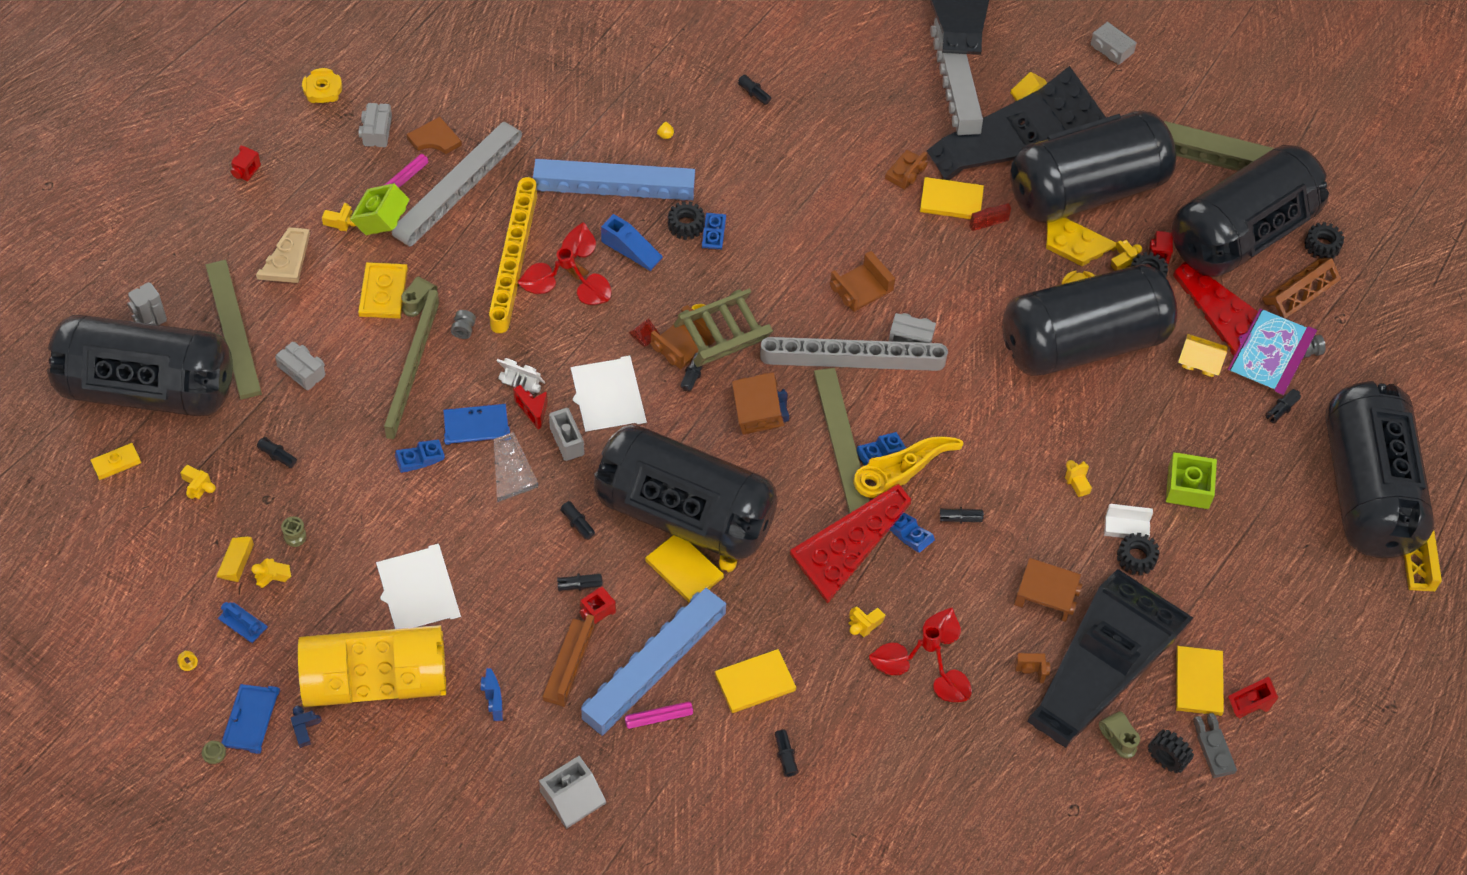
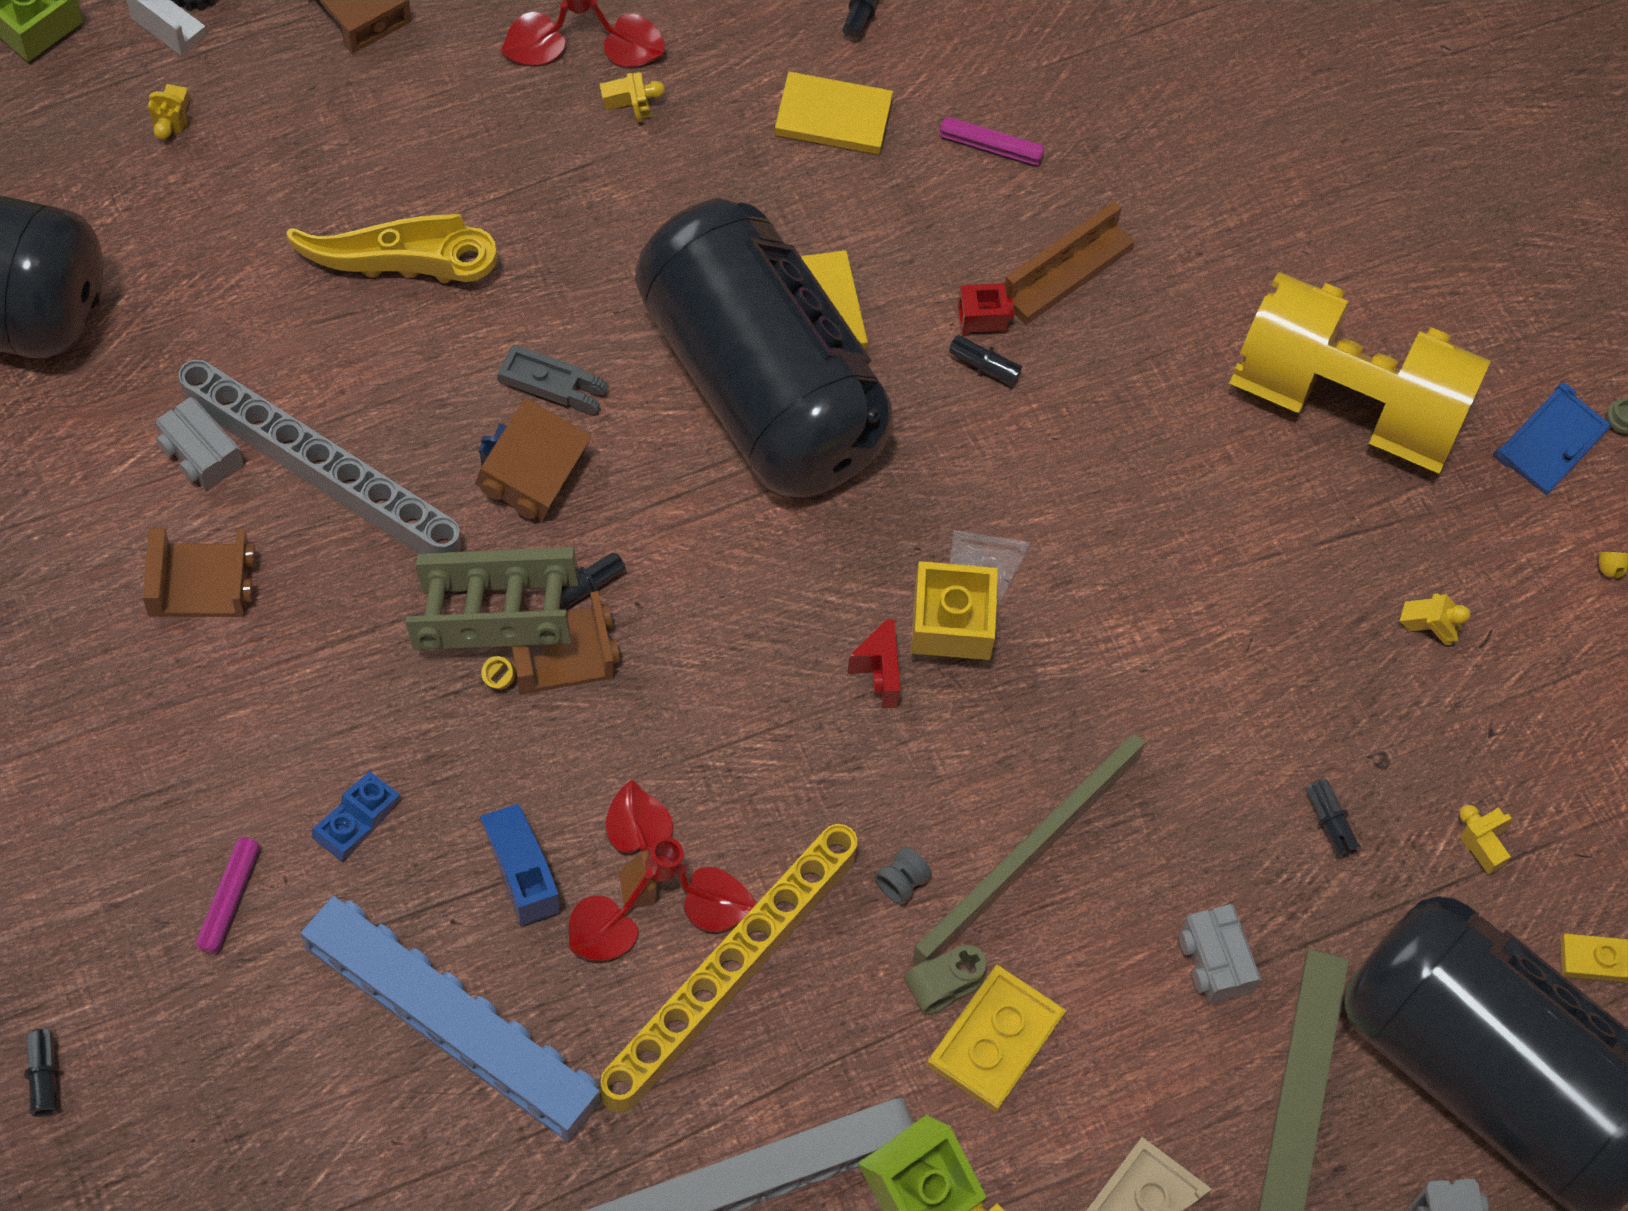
camera: 150 degrees left, 5 degrees up
(235, 558) = (1476, 680): yellow slope -> none
(241, 621) = (1507, 574): blue hinge -> none
(293, 531) = (1363, 671): olive wheel -> none
(301, 722) = (1493, 380): dark blue piece -> none
(418, 588) = (1220, 493): white sticker -> none
(422, 456) = (1107, 691): blue slope -> none
(475, 426) = (1008, 697): blue door -> none
(492, 692) = (1202, 275): blue slope -> none
(509, 428) = (954, 610): none -> yellow brick
(513, 375) = (868, 717): white hinge -> none
(566, 434) = (863, 574): light grey brick -> none
(572, 792) = (1172, 107): light grey slope -> none
(577, 520) = (928, 451): black axle -> none
(608, 394) = (741, 633): white sticker -> none
(642, 332) = (612, 700): clear red slope -> none
(653, 661) = (952, 200): medium blue brick -> none
(665, 131) = (277, 1077): yellow hinge -> none
(686, 229) = (391, 883): black tyre -> none
(739, 179) = (227, 895): none -> dark pink axle
(783, 451) = (551, 379): none -> dark grey hinge
(840, 435) = (446, 360): olive tile -> none
(840, 548) = (573, 198): red wing -> none
(883, 446) = (404, 308): blue slope -> none
(911, 534) = (467, 174): blue slope -> none
(961, 515) = (379, 153): black axle -> none

